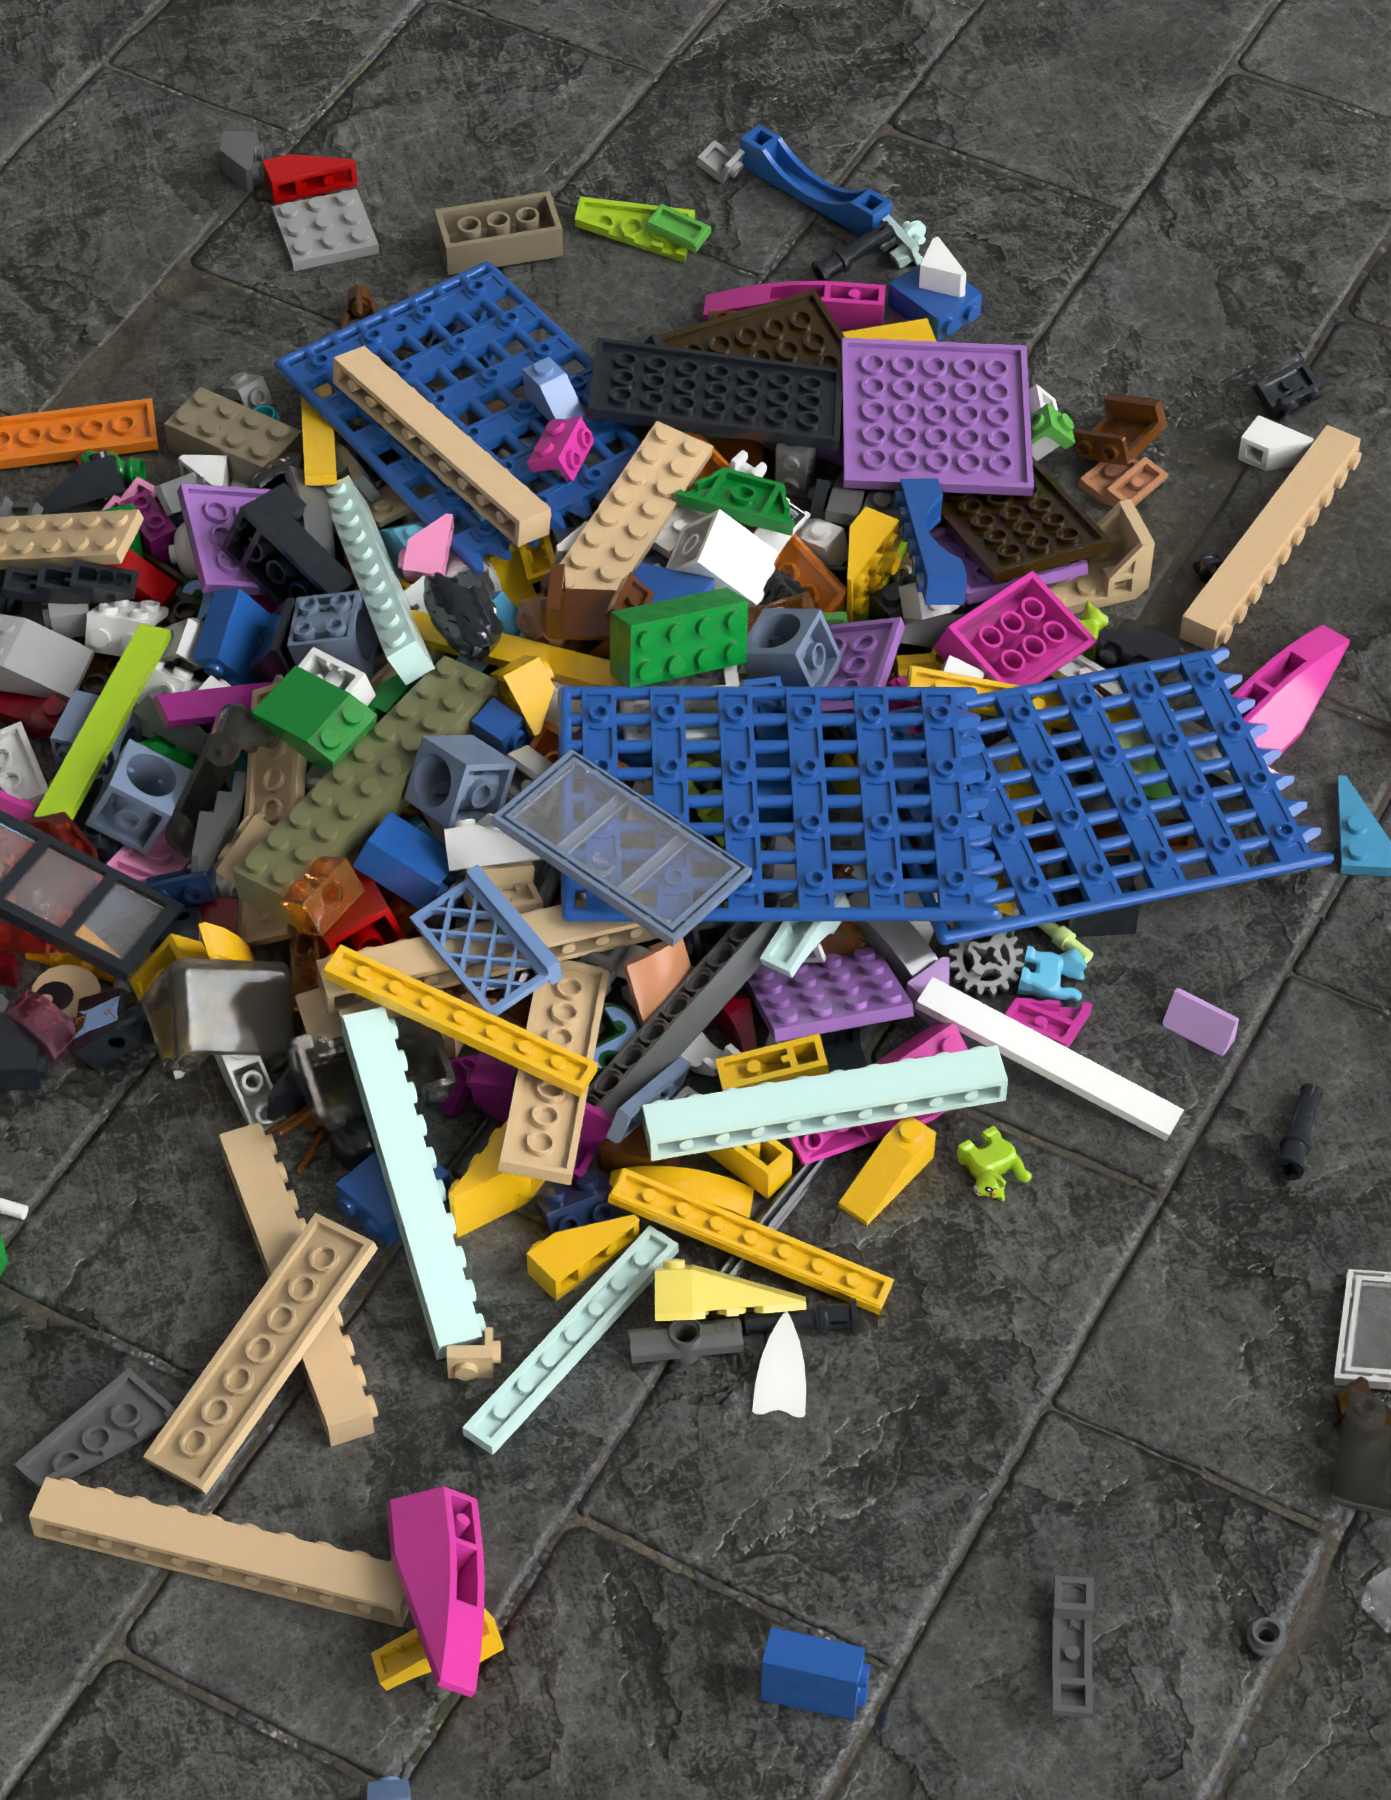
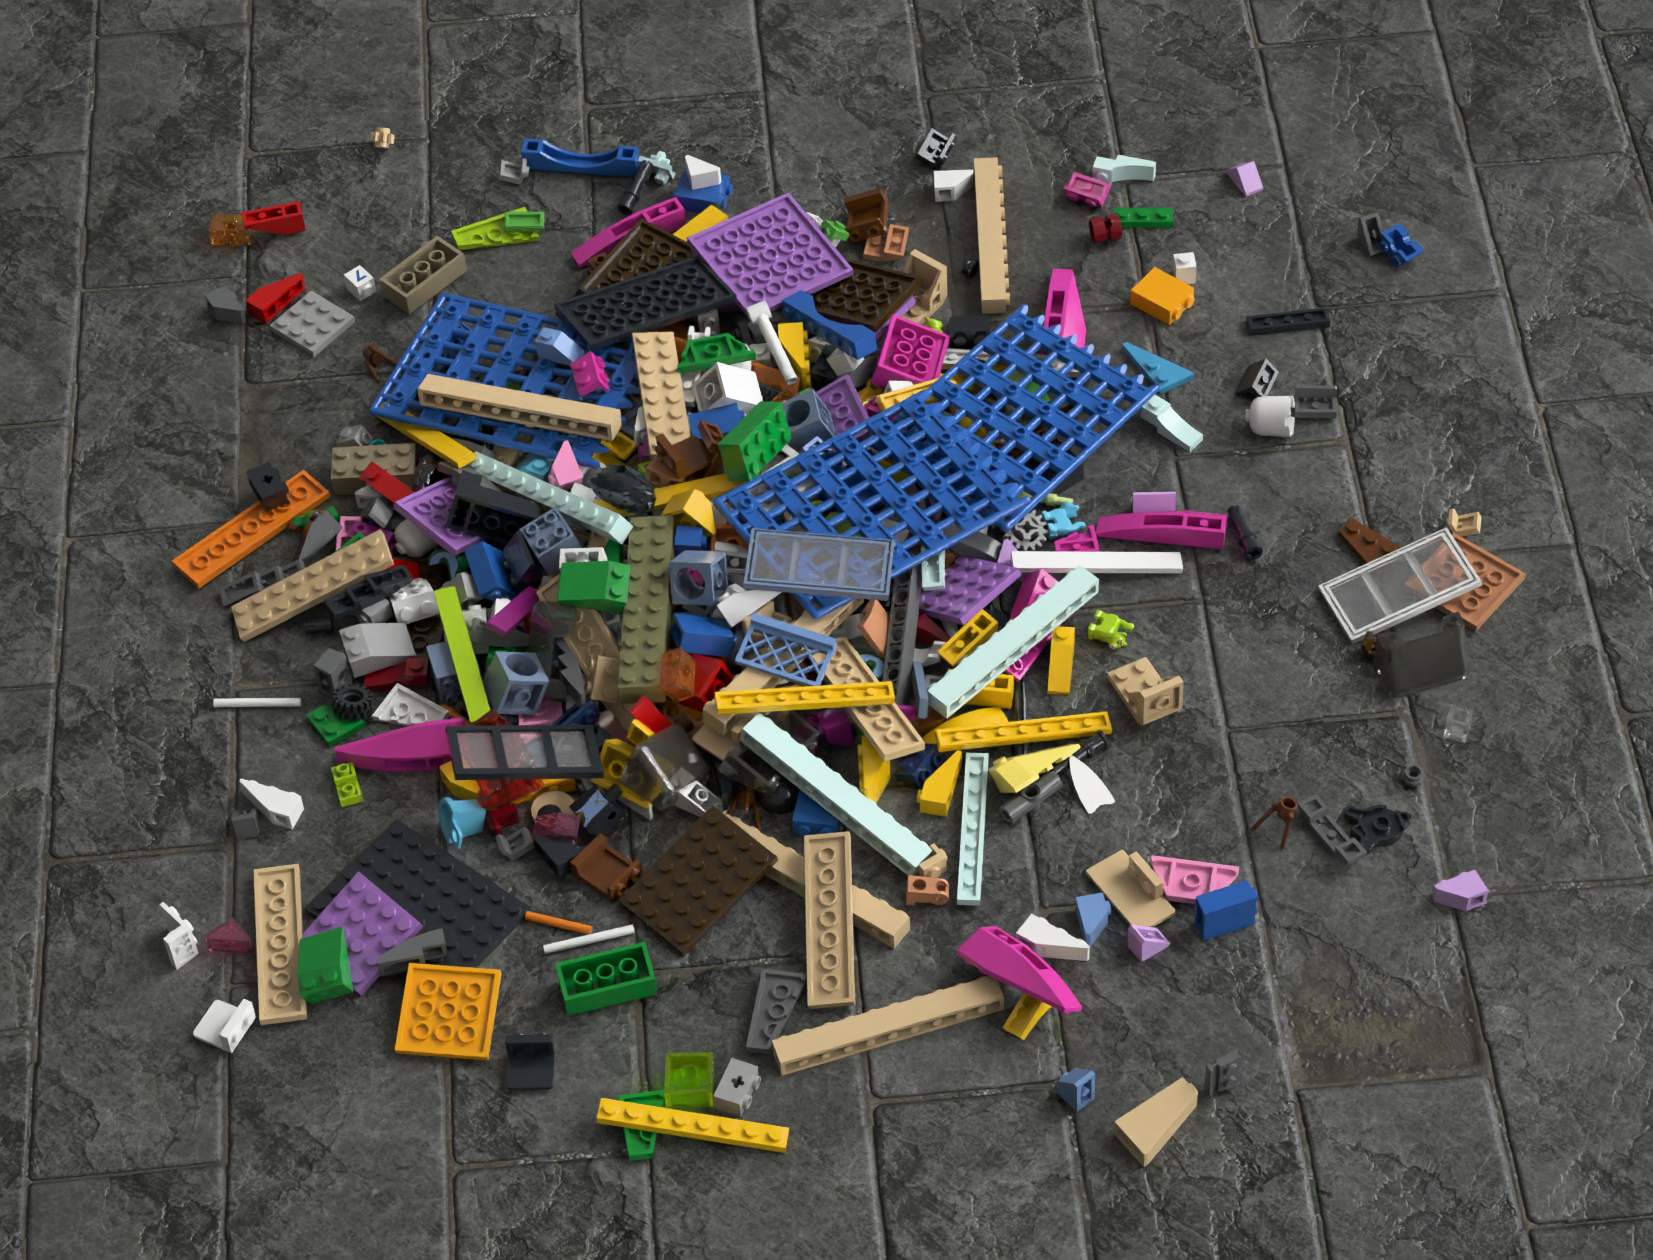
camera: 30 degrees left, 0 degrees up
(58, 1109) = (605, 869): none -> reddish brown panel
(85, 395) = (267, 486): none -> black brick
(151, 1195) = (698, 880): none -> dark brown plate
(211, 456) = (384, 483): none -> red slope
(261, 933) = (649, 715): none -> red slope
(327, 72) = (229, 230): none -> clear orange brick
(388, 84) = (276, 219): none -> red slope
(419, 207) = (360, 283): none -> white brick
(434, 1389) = (926, 890): none -> nougat leg
(533, 1563) = (1051, 941): none -> white slope
(597, 47) = (382, 138): none -> tan gear
(625, 1567) = (1092, 915): none -> medium blue slope
(674, 1650) = (1145, 941): none -> lavender slope
(712, 1564) = (1132, 889): none -> tan bracket
(812, 1599) = (1188, 878): none -> bright pink wing
(847, 481) = (760, 314): none -> white piece
(971, 1280) = (1145, 692): none -> tan bracket
(1015, 1575) = (1285, 811): none -> reddish brown plant
(1151, 1682) = (1377, 825): none -> black tile
(1203, 1070) = (1172, 527): none -> dark pink wedge
(1315, 921) = (1170, 423): none -> light aqua slope

